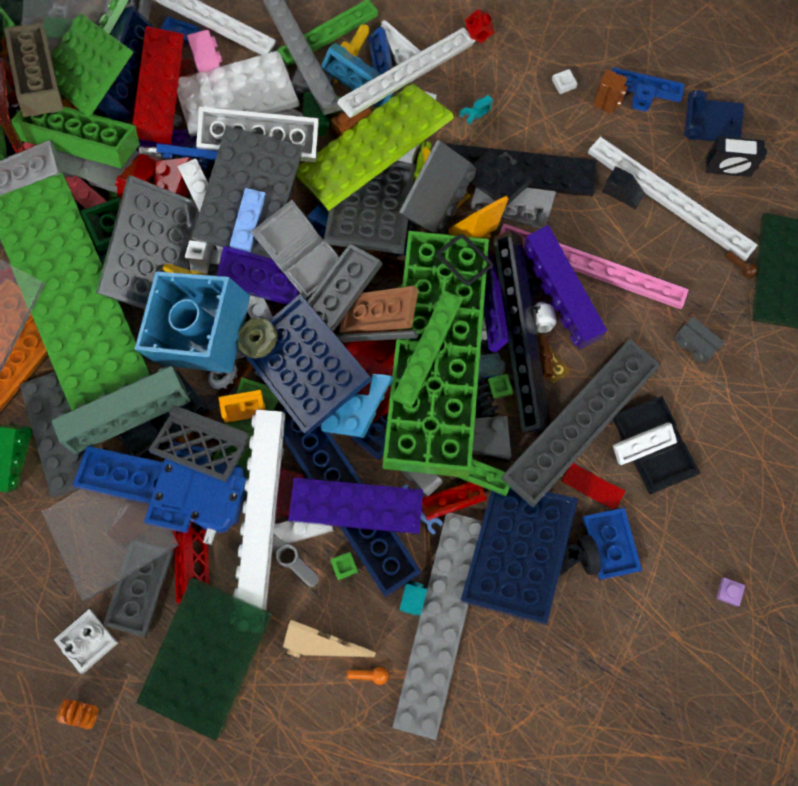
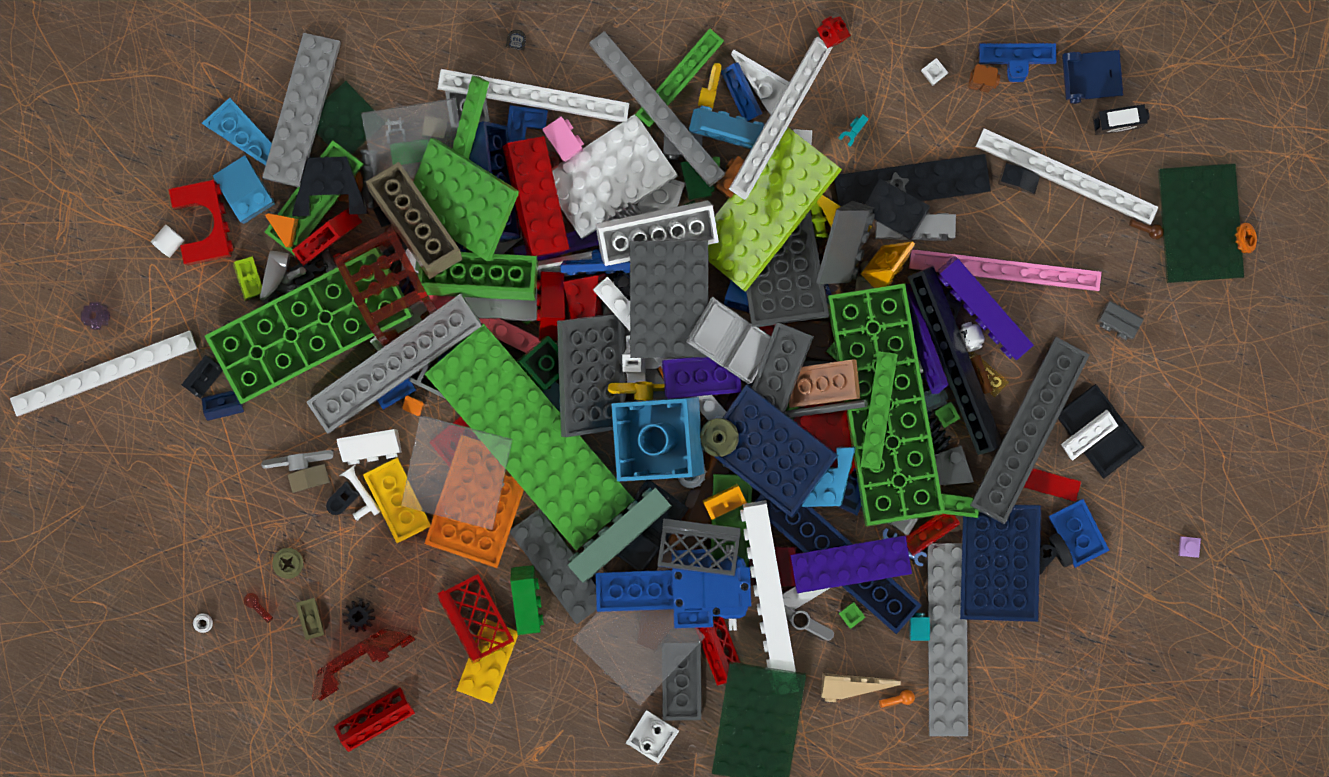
camera: 20 degrees left, 15 degrees up
(247, 219) = (678, 329): light blue plate -> none
(438, 254) = (897, 299): black piece -> none

